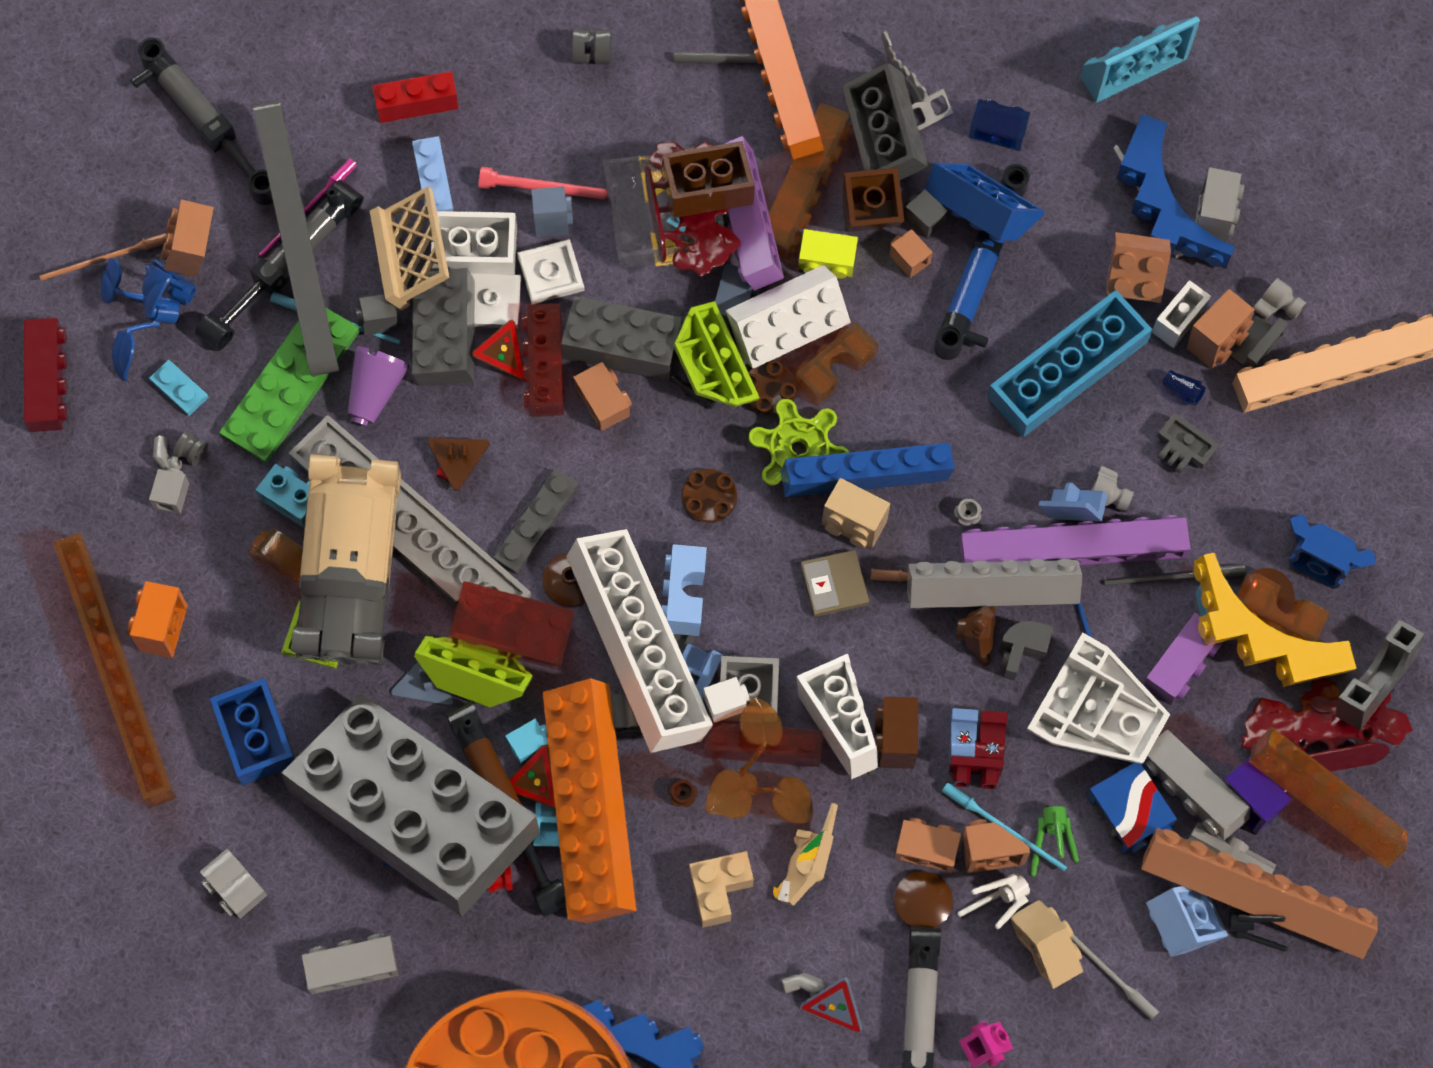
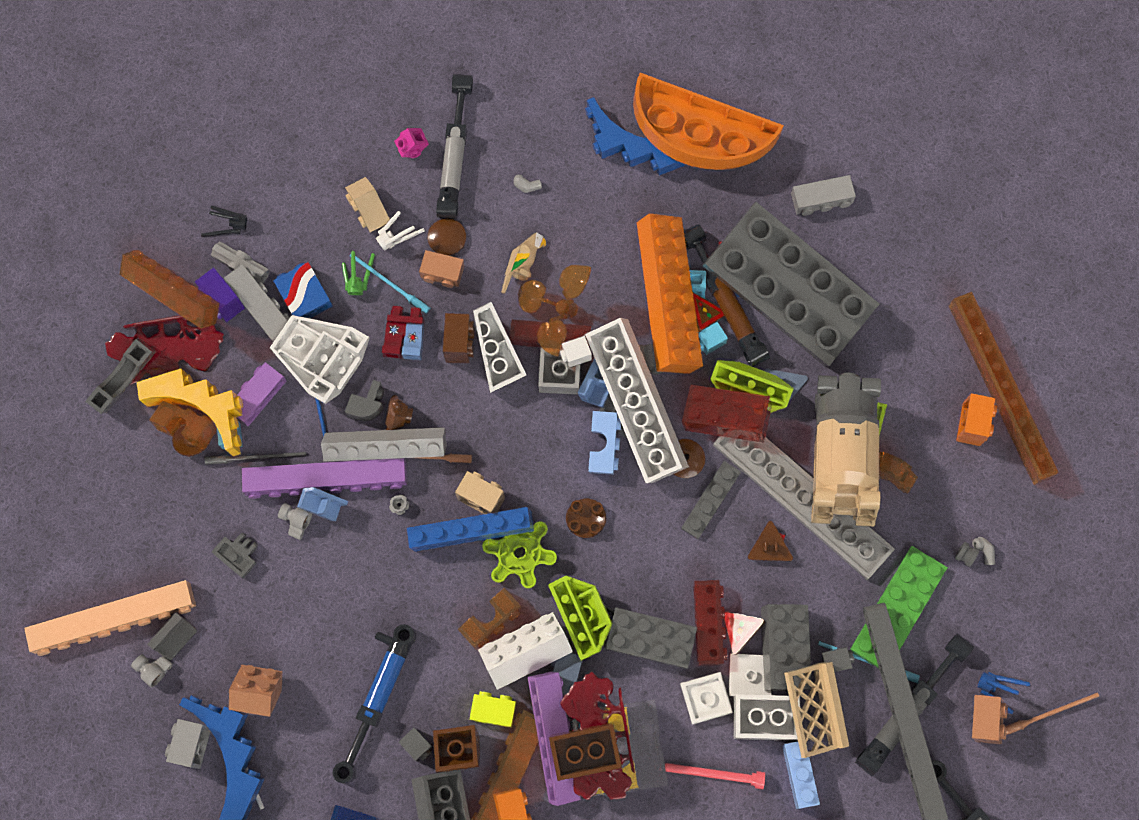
camera: 175 degrees left, 5 degrees up
(44, 375) = (1083, 613): dark red brick -> none
(155, 309) = (1009, 664): blue plant -> none
(169, 490) = (979, 521): light grey brick -> none
(178, 387) = (981, 605): medium azure plate -> none
(233, 884) = (905, 246): light grey brick -> none
(252, 731) = (901, 343): blue brick -> none
(285, 493) = (893, 518): medium azure brick -> none
(340, 174) = (876, 782): dark pink piece -> none
(372, 384) = (836, 603): medium lavender cone -> none
(551, 211) = (707, 742): sand blue brick -> none
(602, 396) = (665, 593): nougat brick -> none
(675, 790) = (605, 311): reddish brown plate -> none
(713, 880) = (584, 246): tan brick -> none
(772, 384) = (538, 601): reddish brown dish -> none
(834, 583) = (497, 453): dark tan tile -> none
(835, 1005) = (506, 169): piece -> none
(910, 253) = (429, 711): nougat brick -> none
(982, 201) = (370, 748): blue slope -> none
(991, 847) = (399, 261): nougat slope -> none
(1069, 363) = (314, 615): dark azure brick -> none
(1132, 994) = (314, 178): light grey piece -> none
(1181, 314) = (226, 654): white brick -> none
(1185, 920) = (273, 221): light blue slope -> none
(1186, 388) = (231, 599): clear blue cone -> none
(1221, 329) = (198, 639): nougat brick -> none
(1260, 892) = (224, 232): nougat brick -> none
(1325, 552) = (142, 469): blue slope -> none

